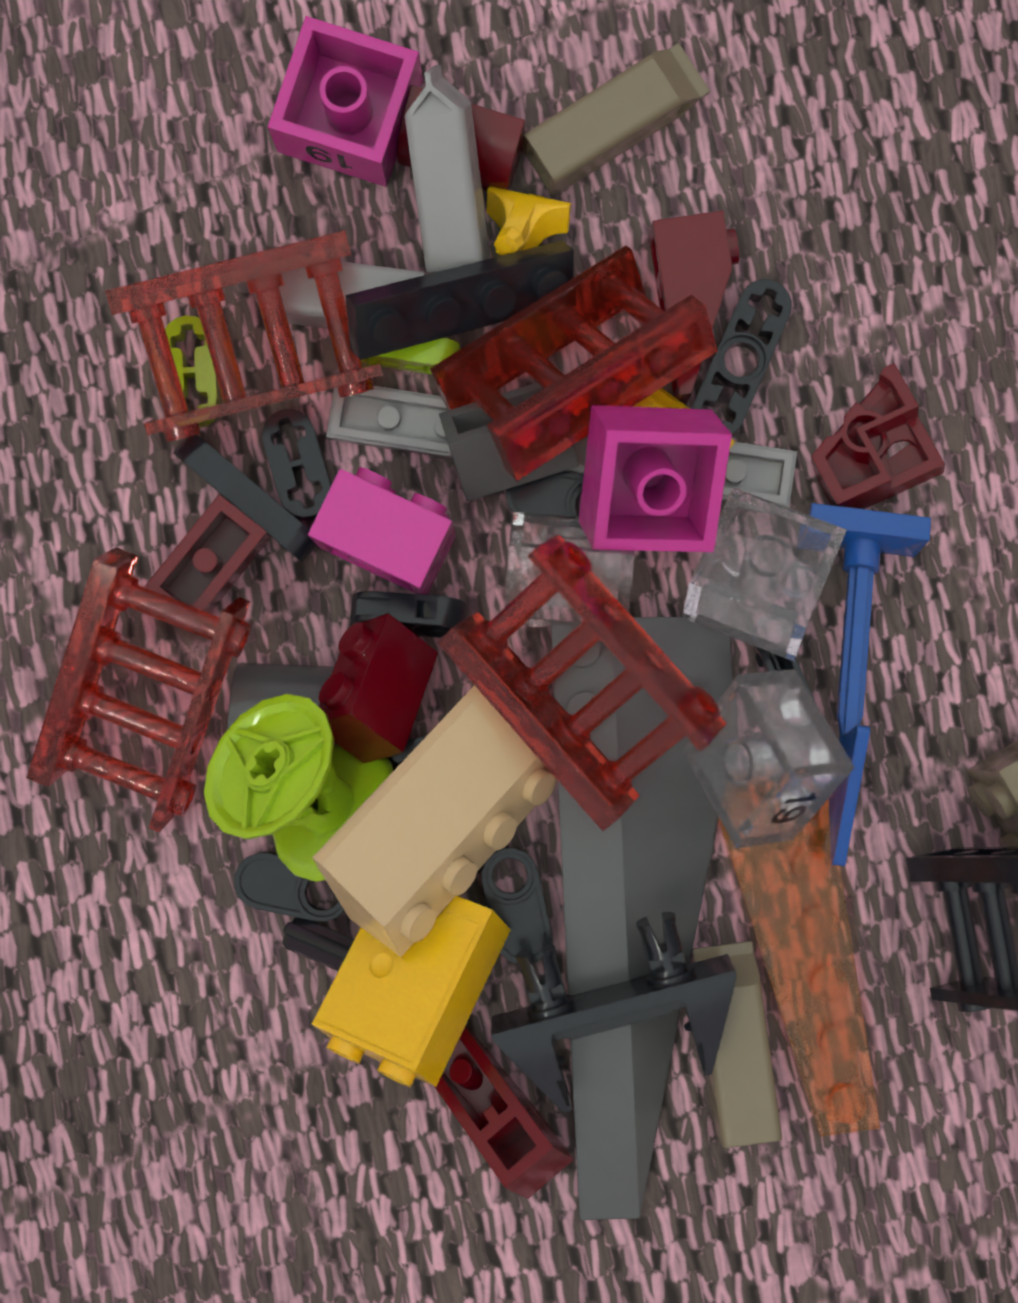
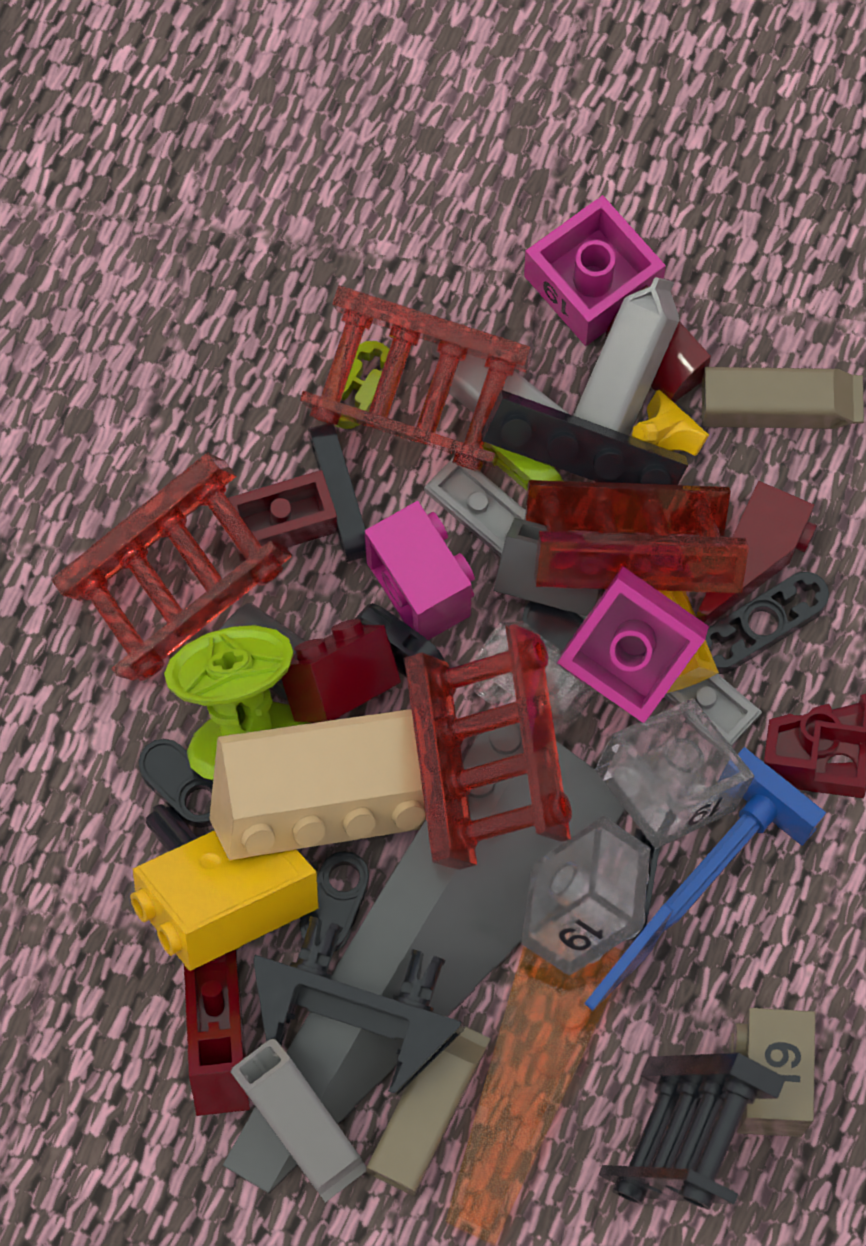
camera: 30 degrees right, 15 degrees down
(284, 468) = (380, 481): black beam -> none
(627, 1150) = (299, 1119): none -> light grey piece

